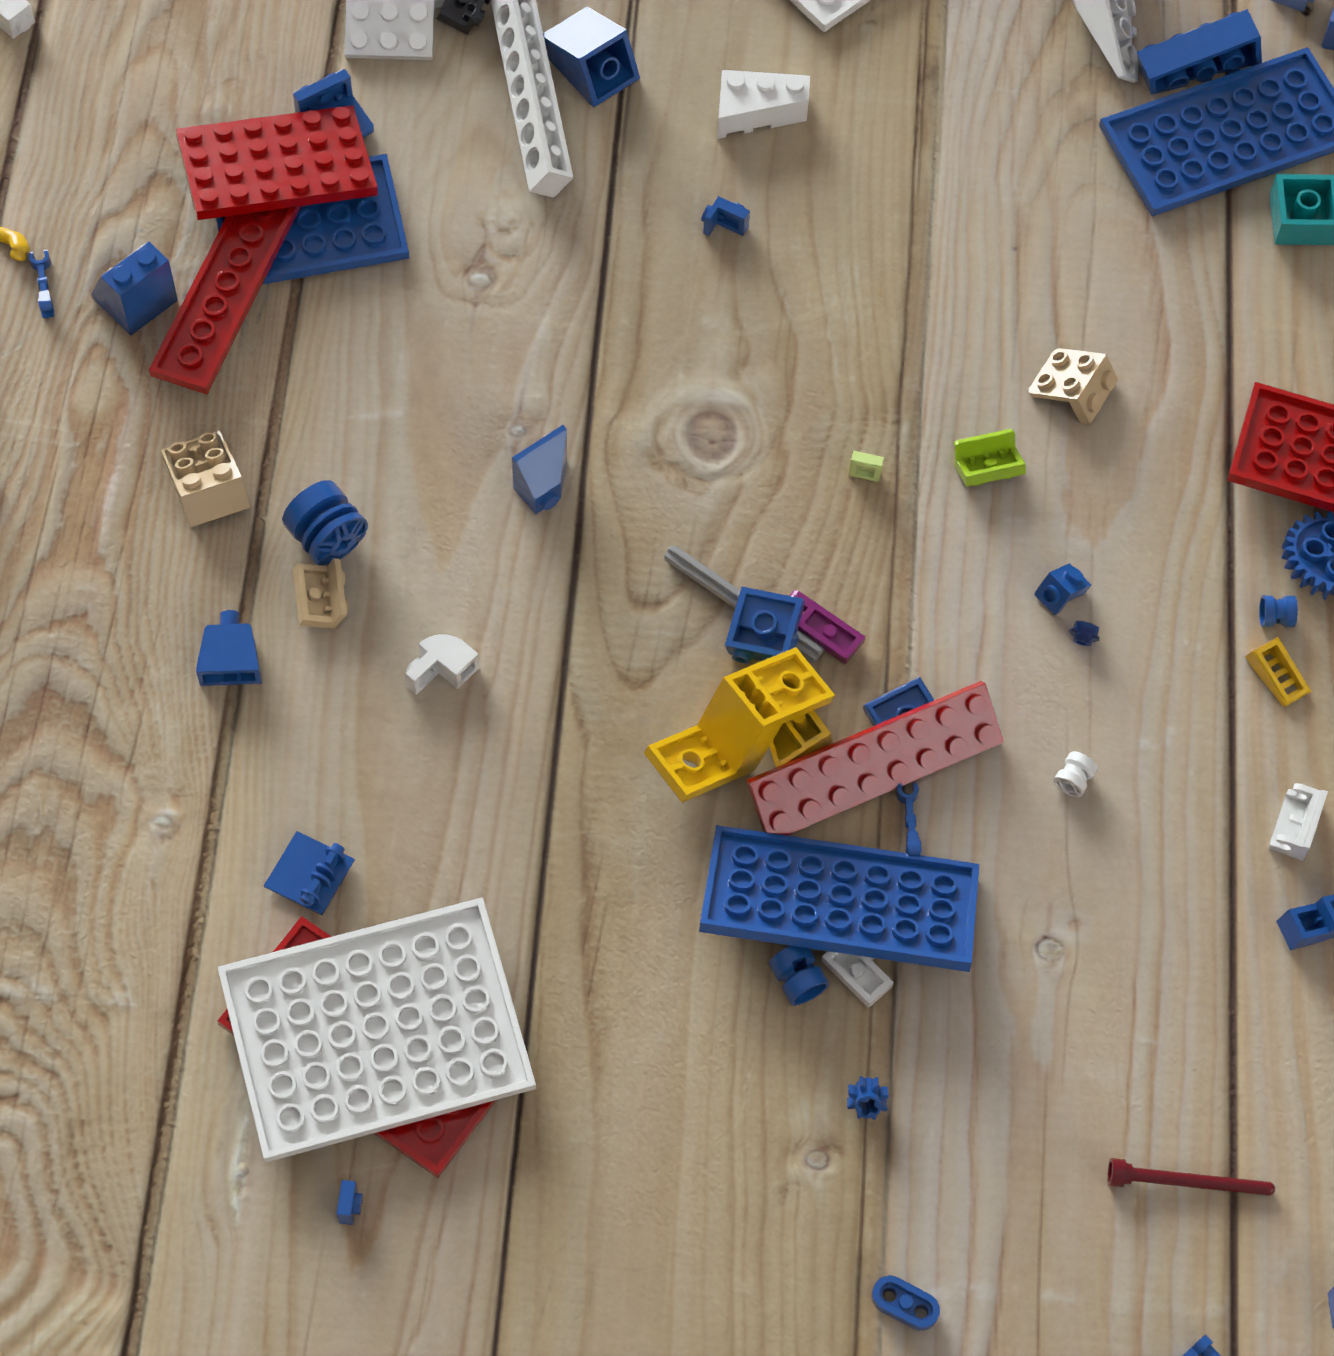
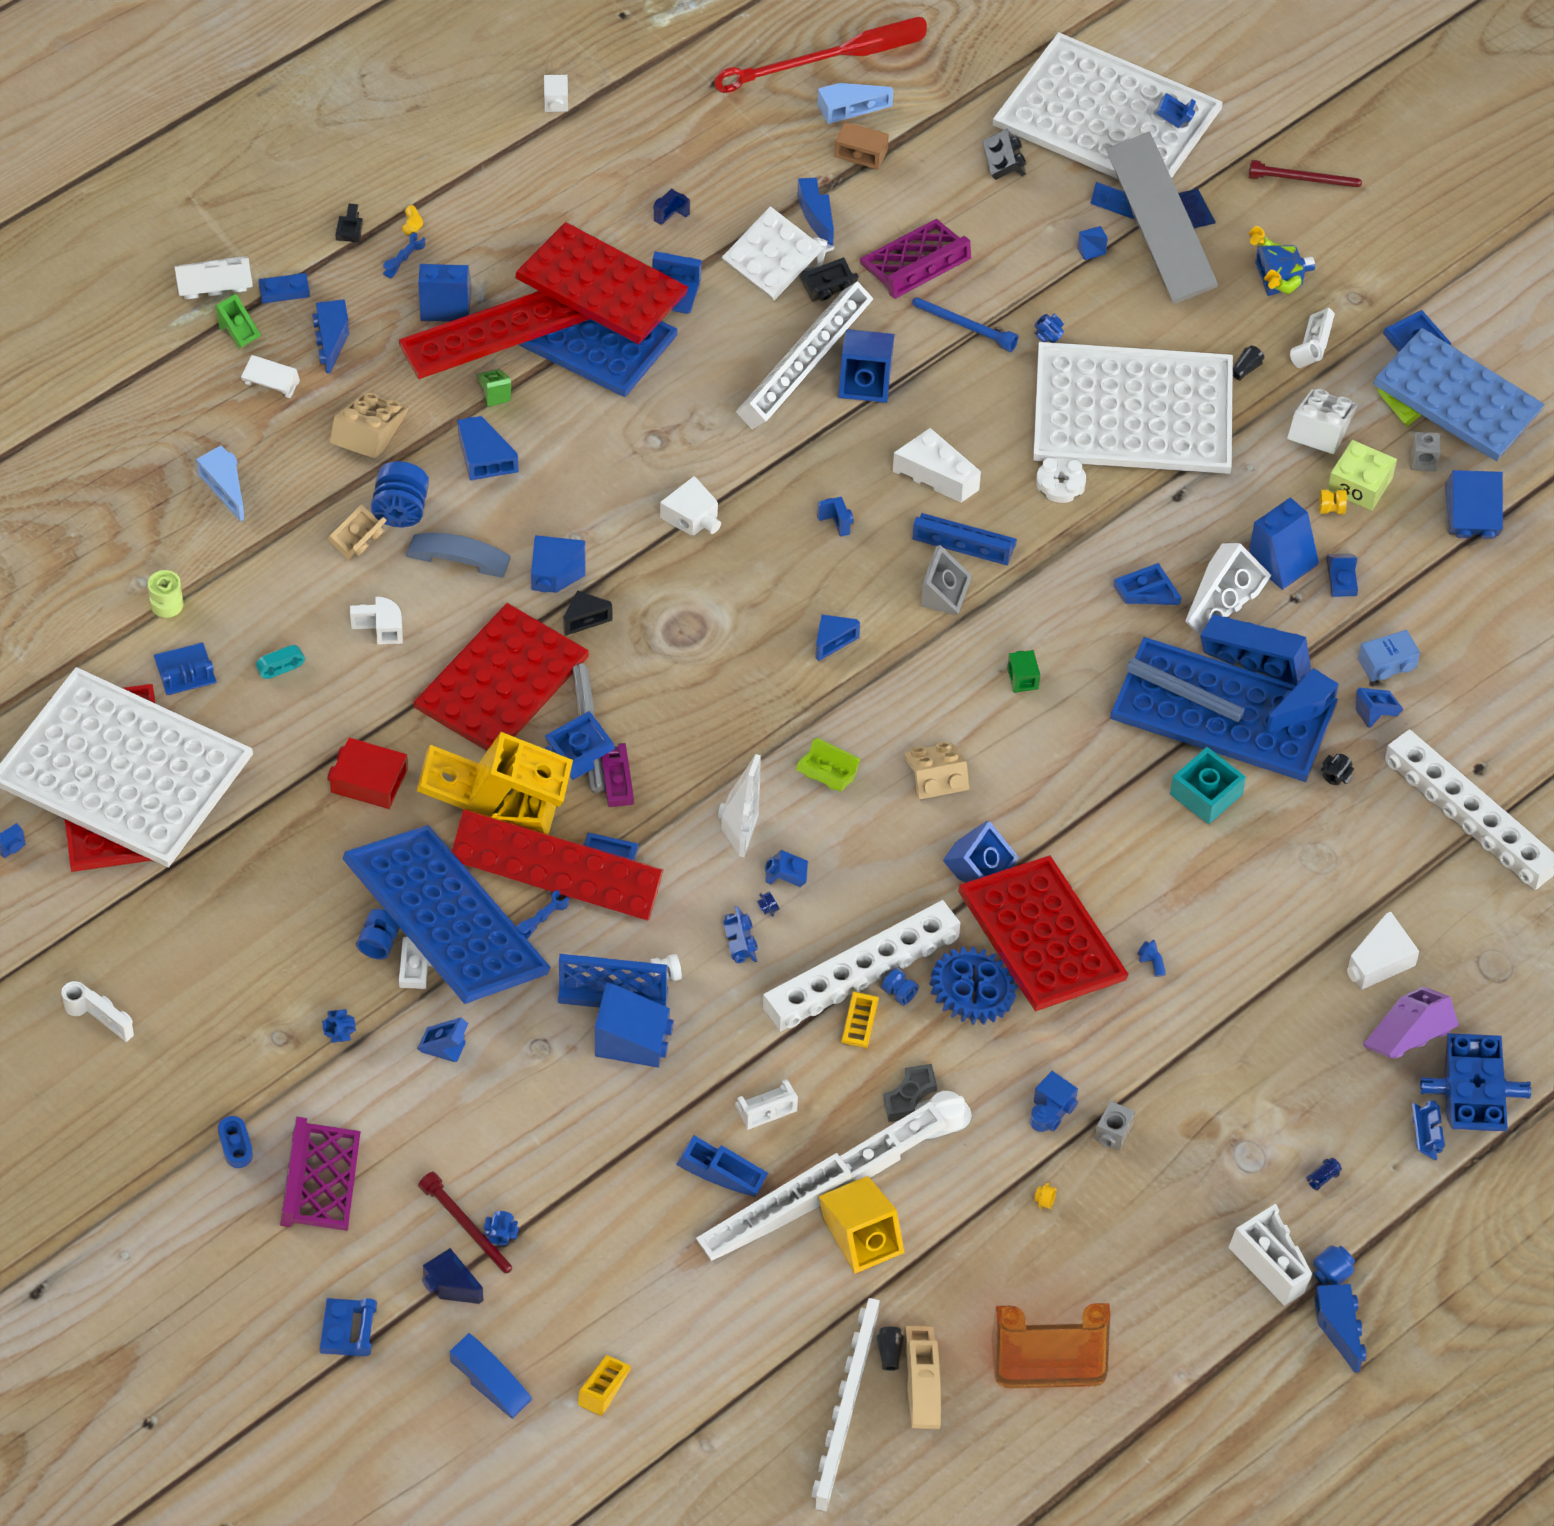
camera: 45 degrees right, 10 degrees down
(56, 506) = (271, 375): none -> white hinge
(58, 408) = (332, 332): none -> blue slope
(126, 647) = (220, 474): none -> light blue slope
(210, 813) = (165, 593): none -> yellowish green wheel
(228, 653) = (272, 523): blue torso -> none
(244, 32) = (669, 204): none -> clear blue bracket
(282, 339) = (495, 386): none -> bright green slope
(343, 413) = (485, 450): none -> blue slope
(395, 786) = (280, 662): none -> teal beam
(431, 532) = (459, 549): none -> sand blue slope
(596, 315) = (691, 508): none -> white torso
(604, 823) = (368, 773): none -> red brick
(611, 625) = (501, 678): none -> red plate
(615, 494) = (586, 612): none -> black slope
(629, 1291) = (98, 1007): none -> white plate
(847, 332) = (835, 634): none -> blue slope
(851, 151) = (963, 538): none -> blue fence
(866, 466) = (750, 712): yellowish green tile -> none
(872, 18) = (1060, 468): none -> white plate
(885, 207) = (944, 583): none -> light grey slope
(971, 1020) = (445, 1039): none -> blue slope
(978, 561) = (742, 808): none -> white wedge
(1000, 1285) = (296, 1175): none -> magenta fence
(1041, 231) = (1023, 671): none -> green brick
(1049, 71) = (1147, 587): none -> blue wing
(1058, 833) = (588, 991): none -> blue fence
(1087, 677) = (739, 926): none -> blue hinge
(1117, 858) = (631, 1028): none -> blue slope
(1191, 138) = (1185, 689): none -> sand blue axle
(1203, 719) = (847, 965): none -> white brick
(1204, 434) = (980, 854): none -> blue slope
(1228, 1156) = (501, 1228): none -> blue gear
(1242, 1246) = (451, 1279): none -> clear blue slope
(1294, 61) = (1307, 700): none -> blue slope

